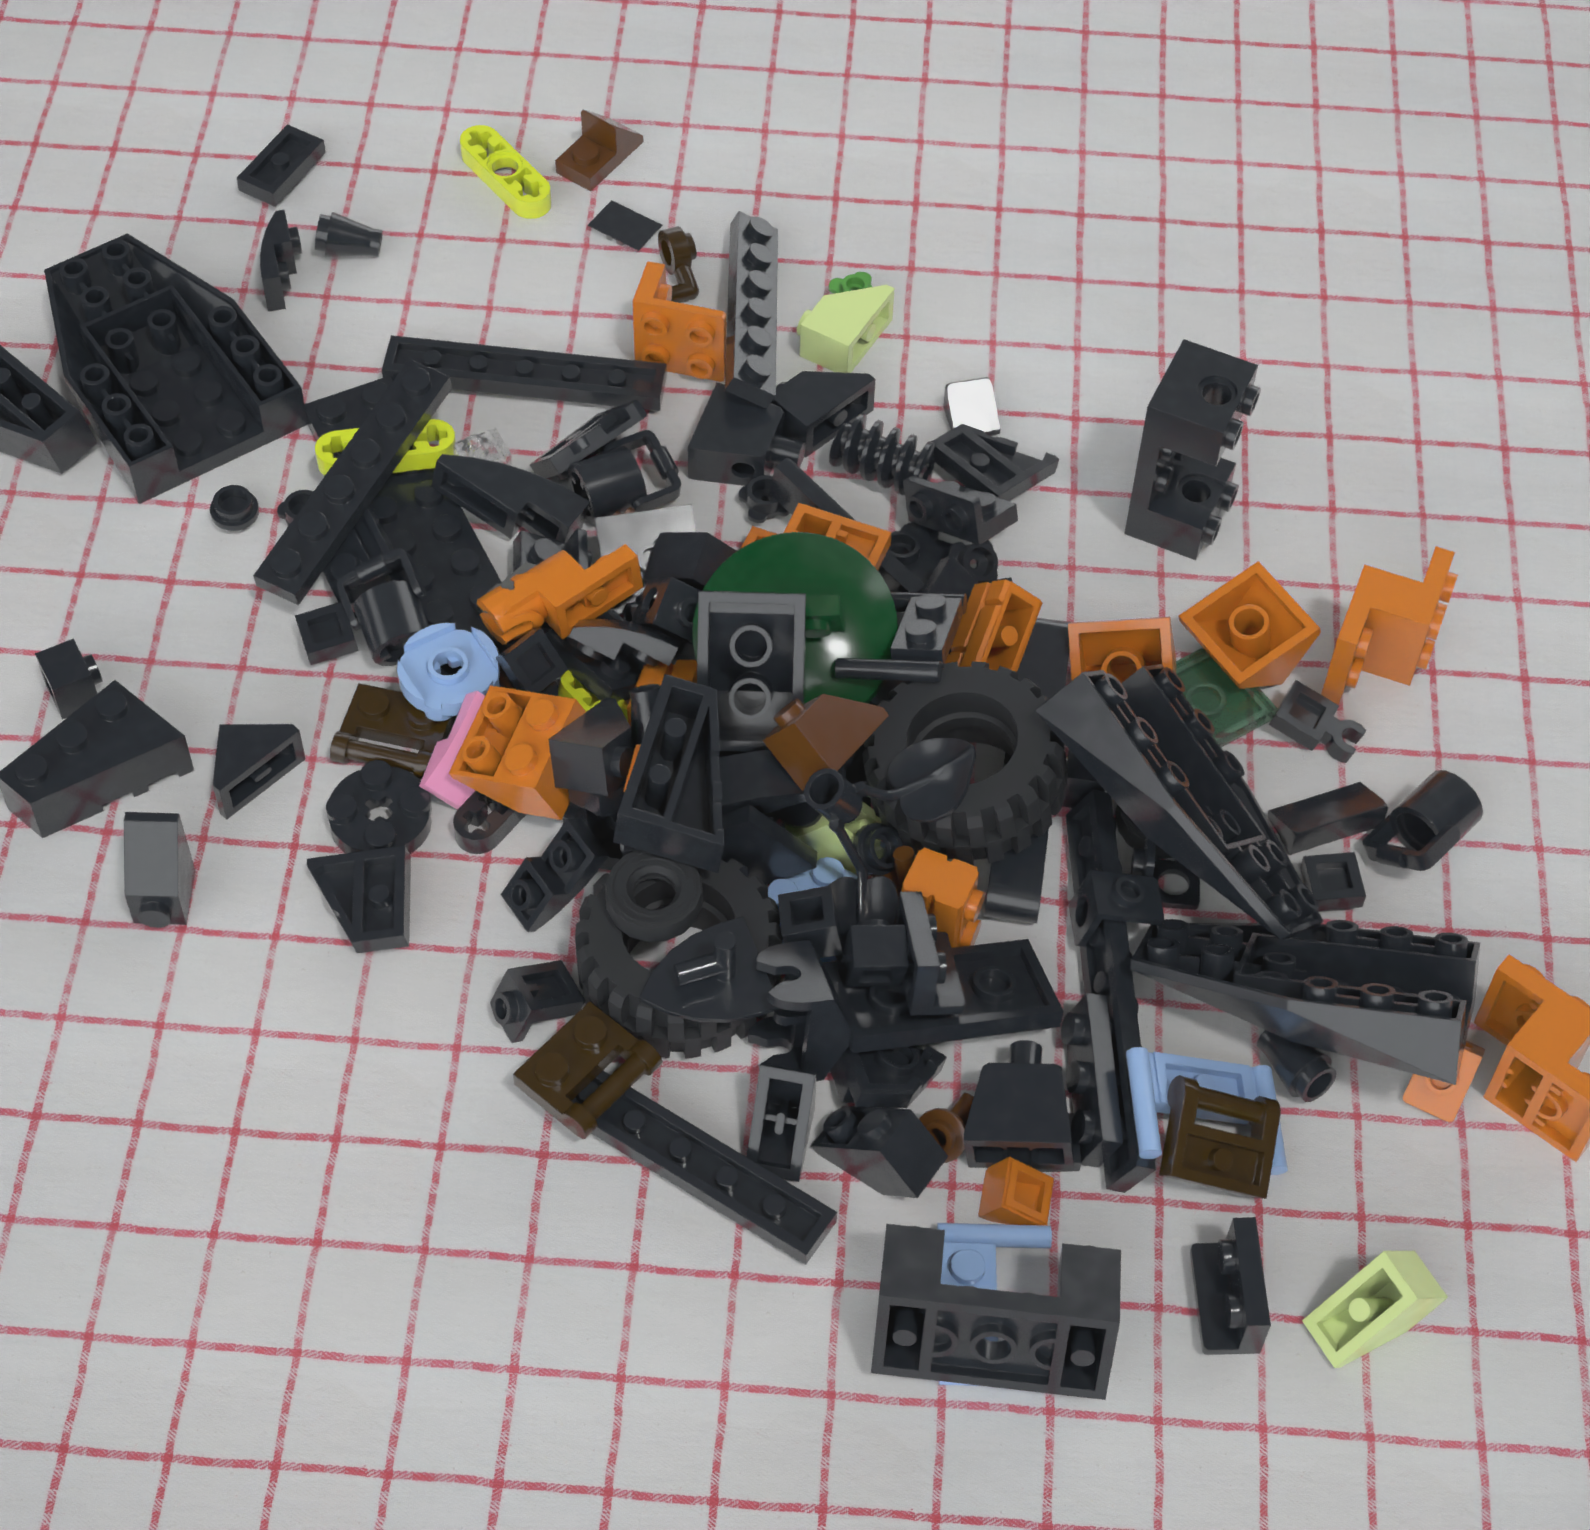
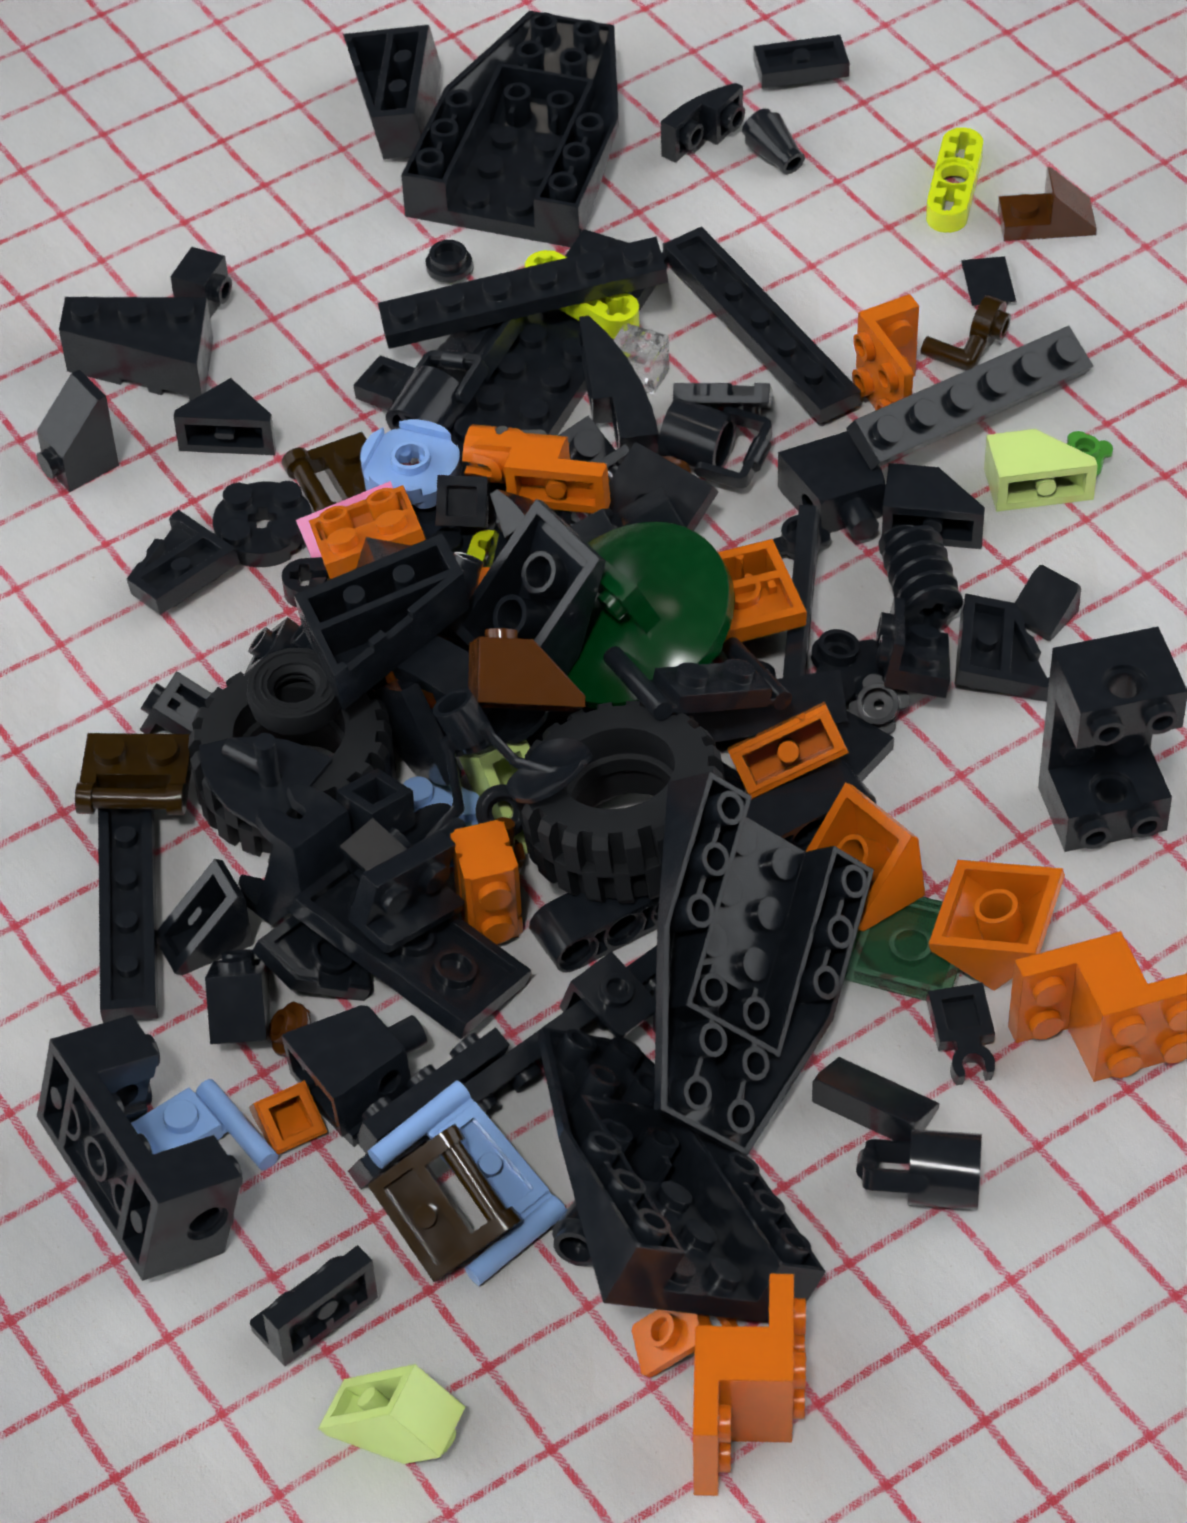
camera: 55 degrees right, 5 degrees down
(1334, 880) = (802, 1141): black plate -> none

